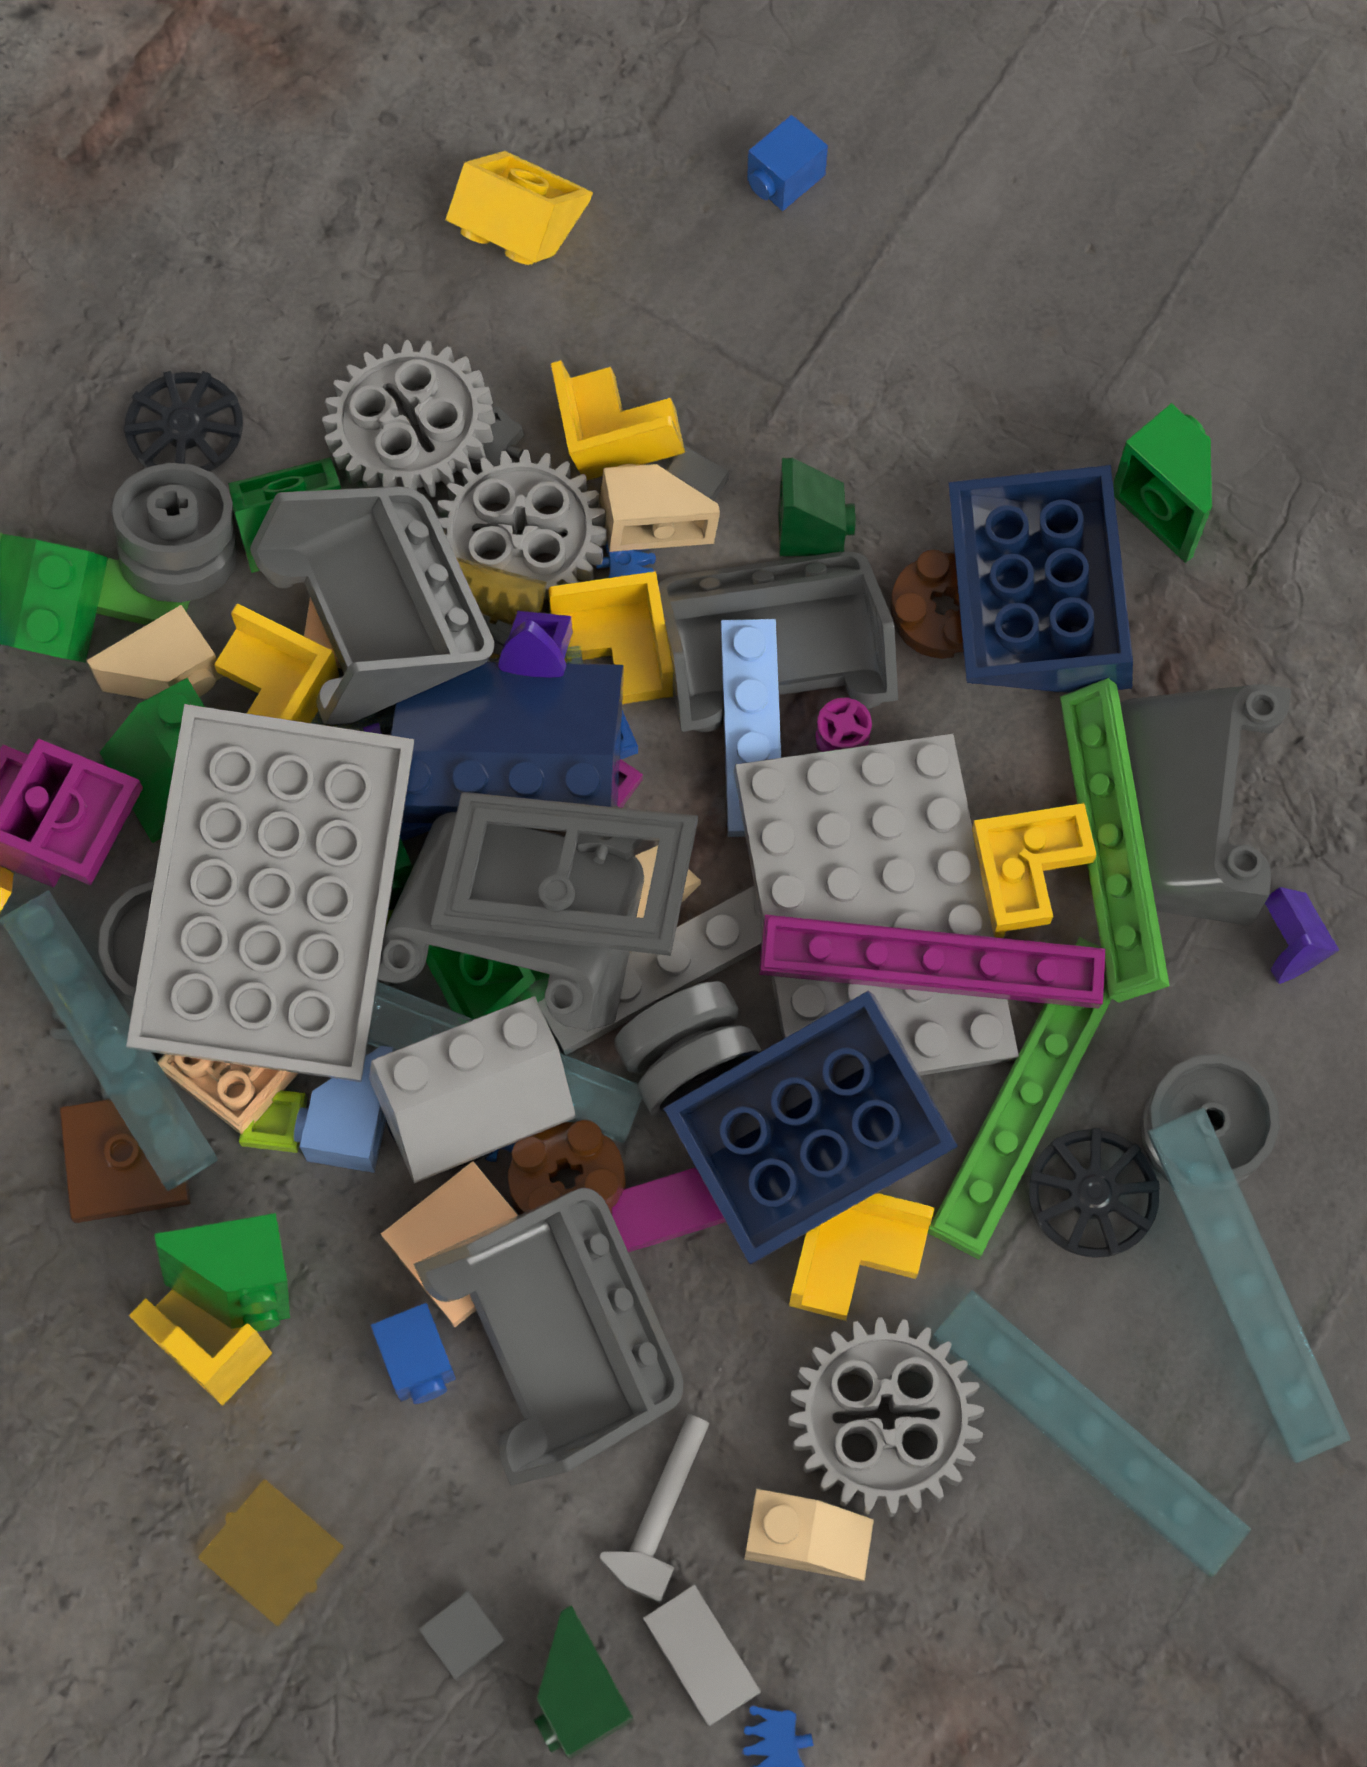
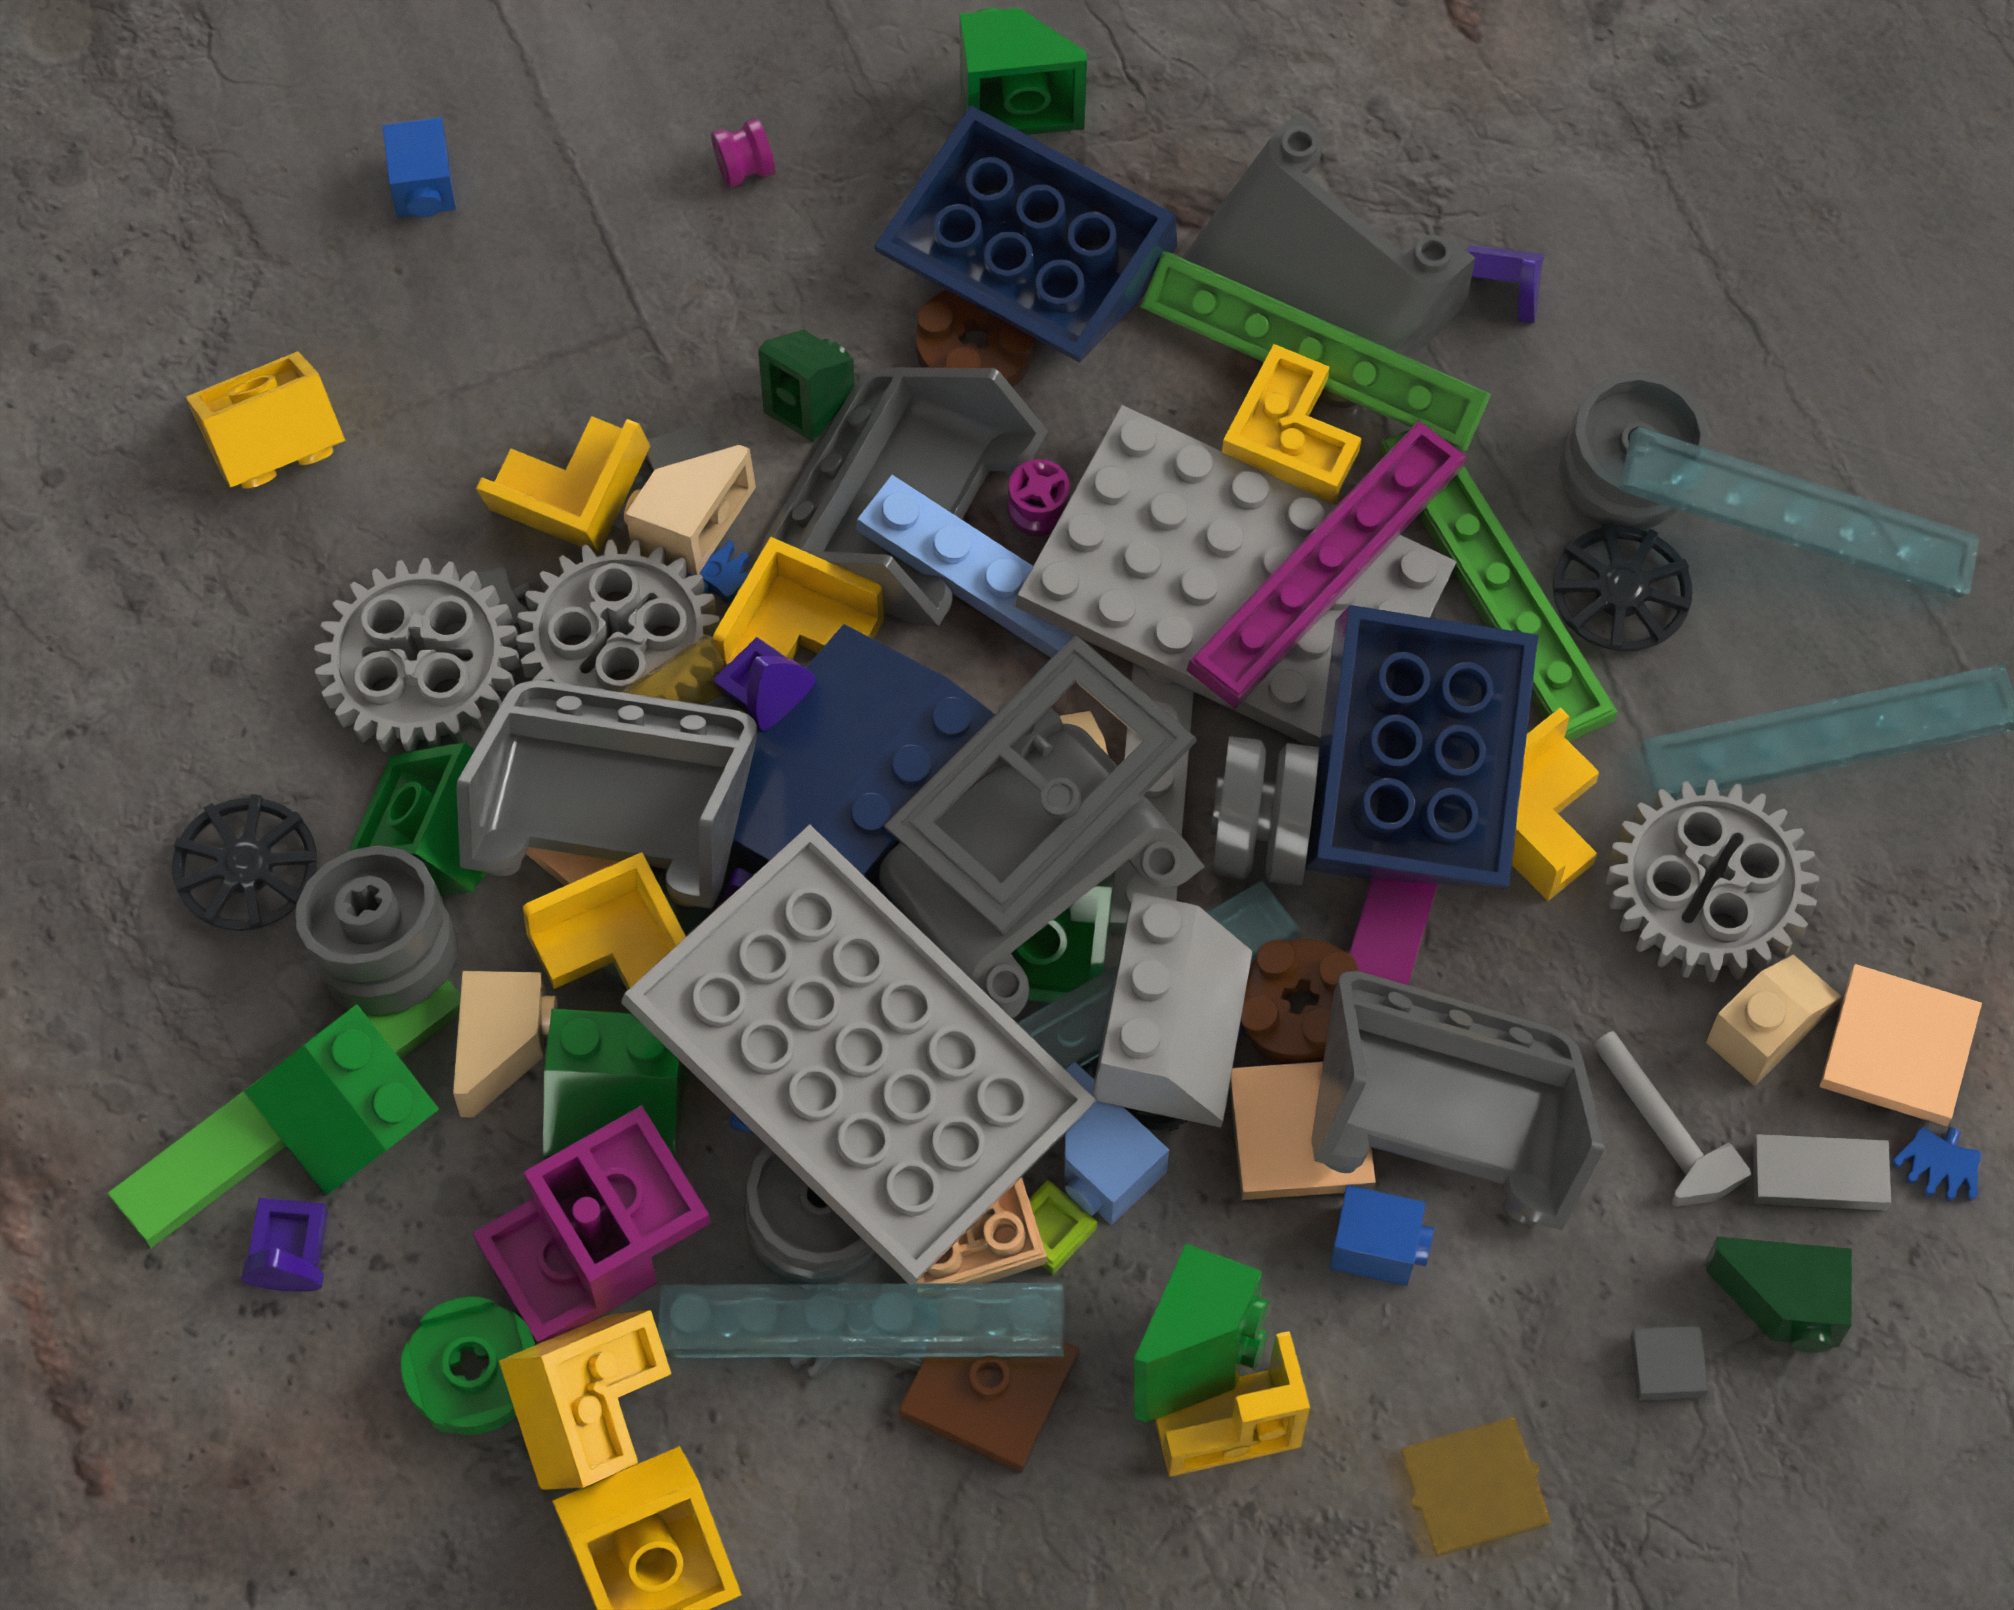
camera: 55 degrees left, 5 degrees down
(850, 1651) = (1900, 1045): none -> light nougat tile
(966, 352) = (743, 153): none -> magenta wheel

